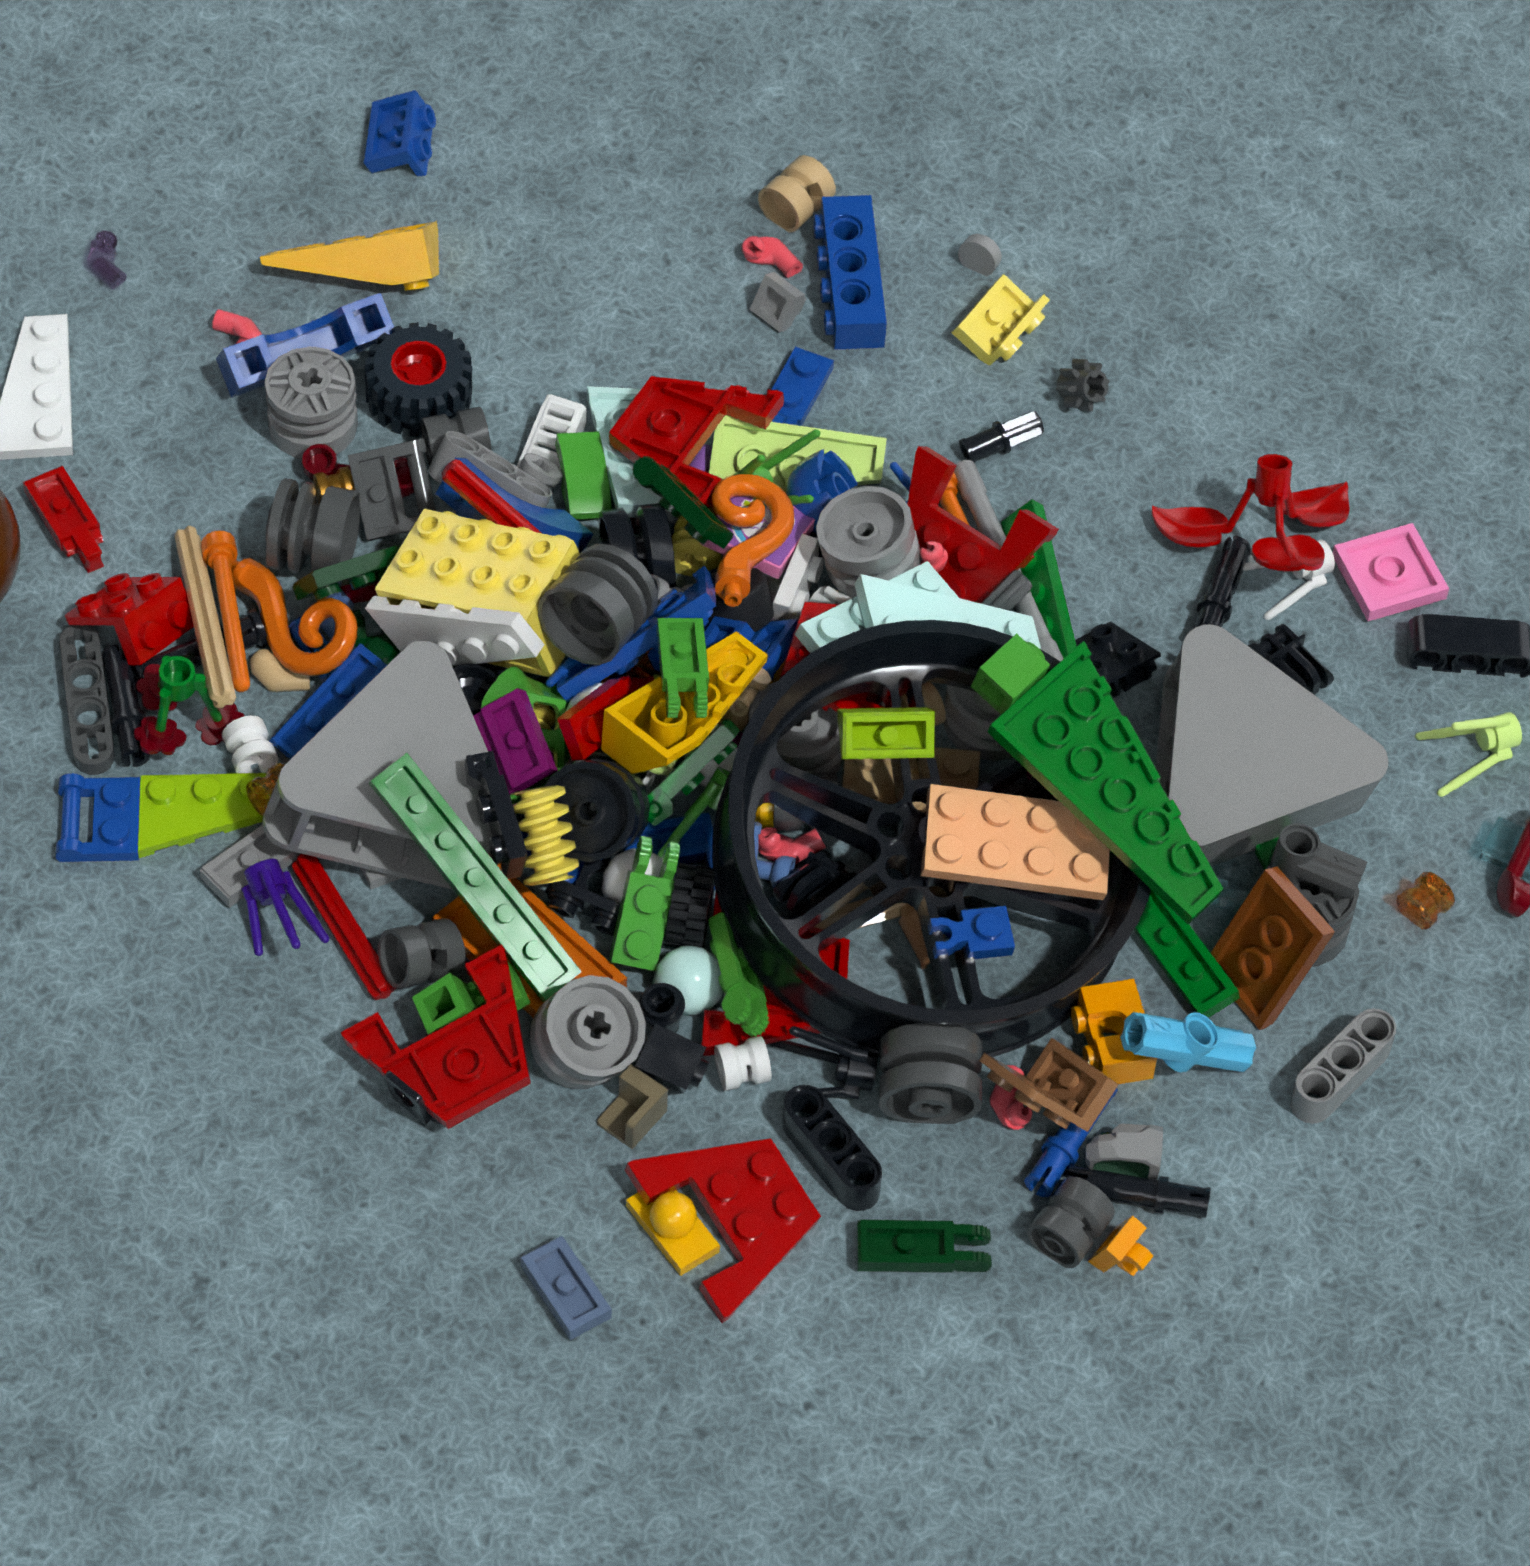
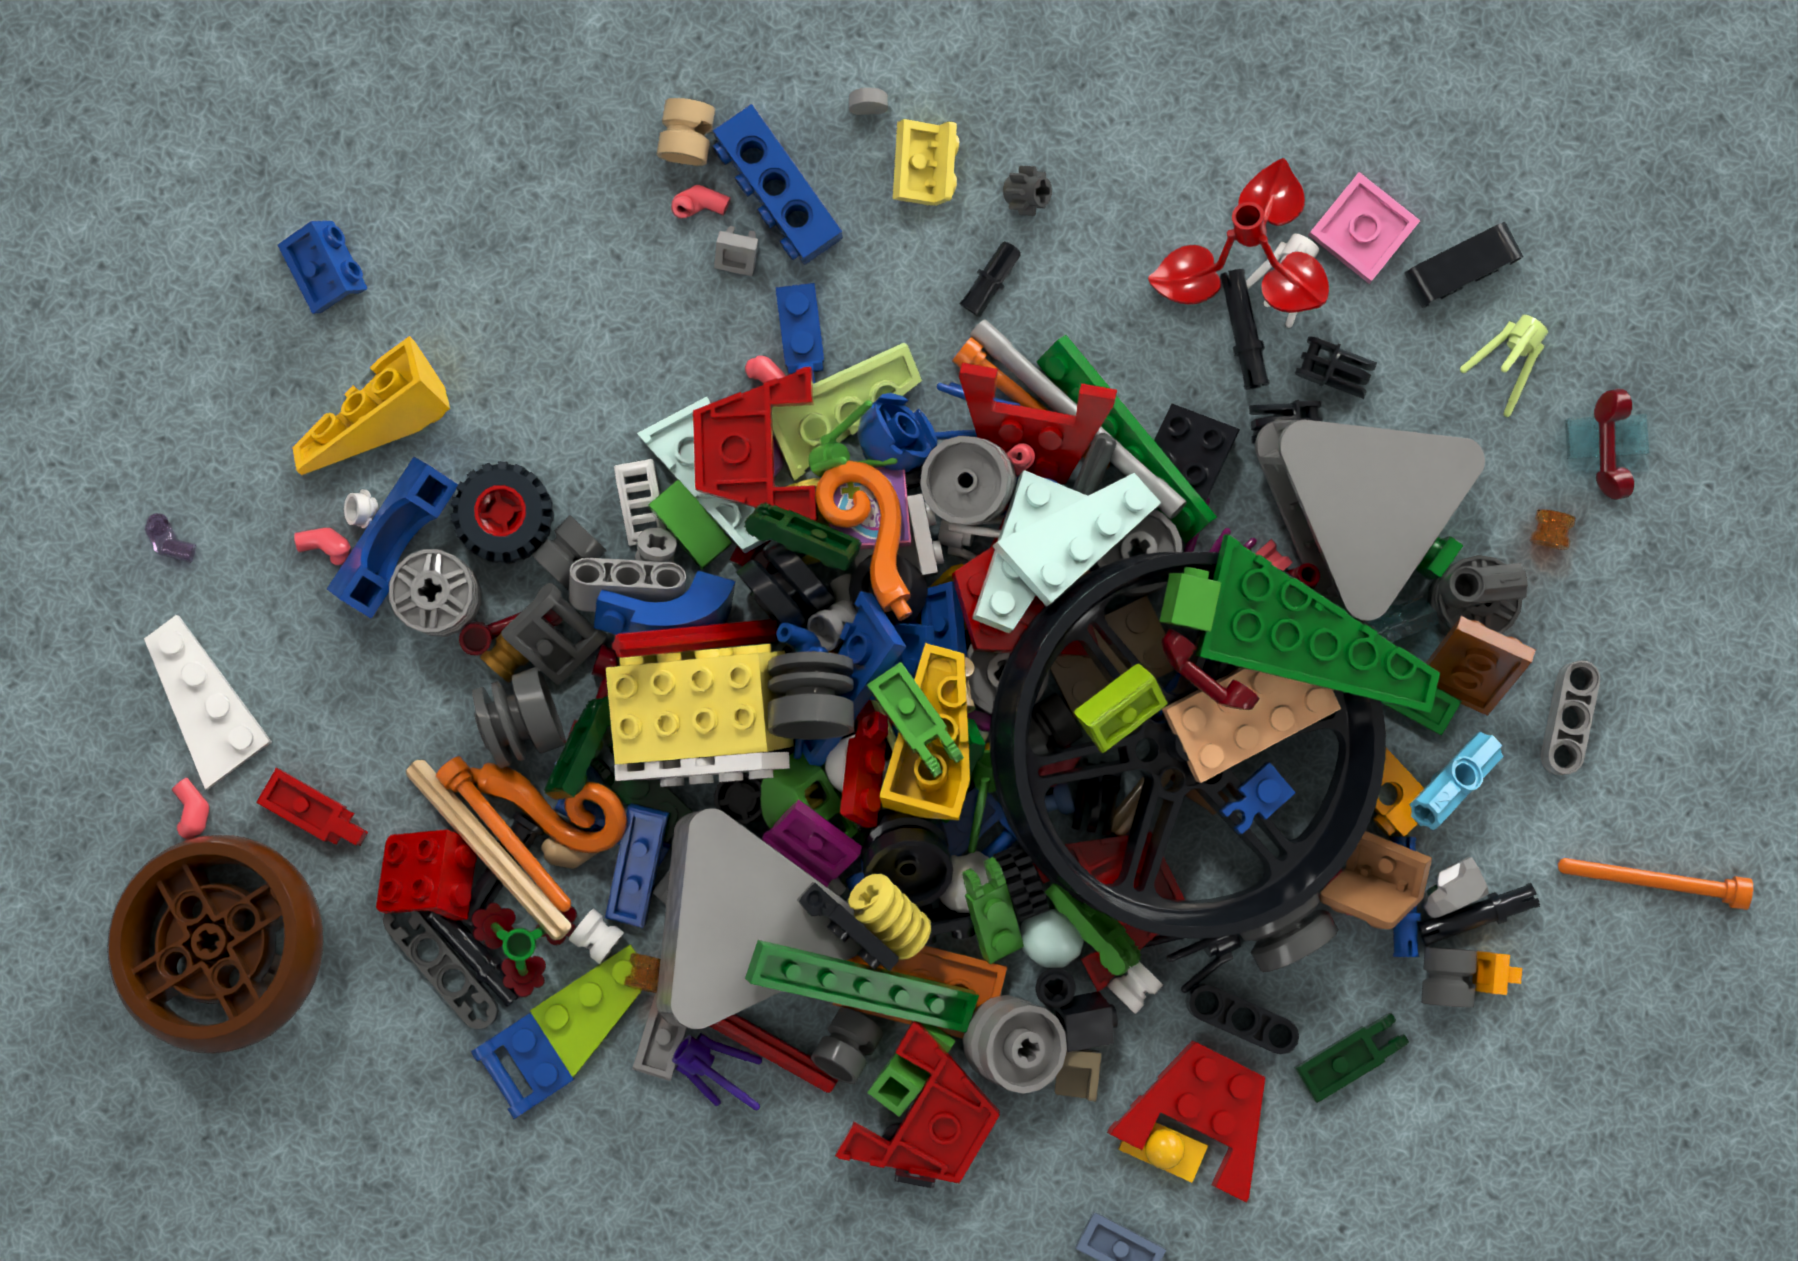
camera: 30 degrees left, 30 degrees up
(293, 316) = (360, 508): none -> white plate
(1003, 787) = (1180, 649): none -> dark red bar
(1419, 1311) = (1736, 892): none -> orange piece

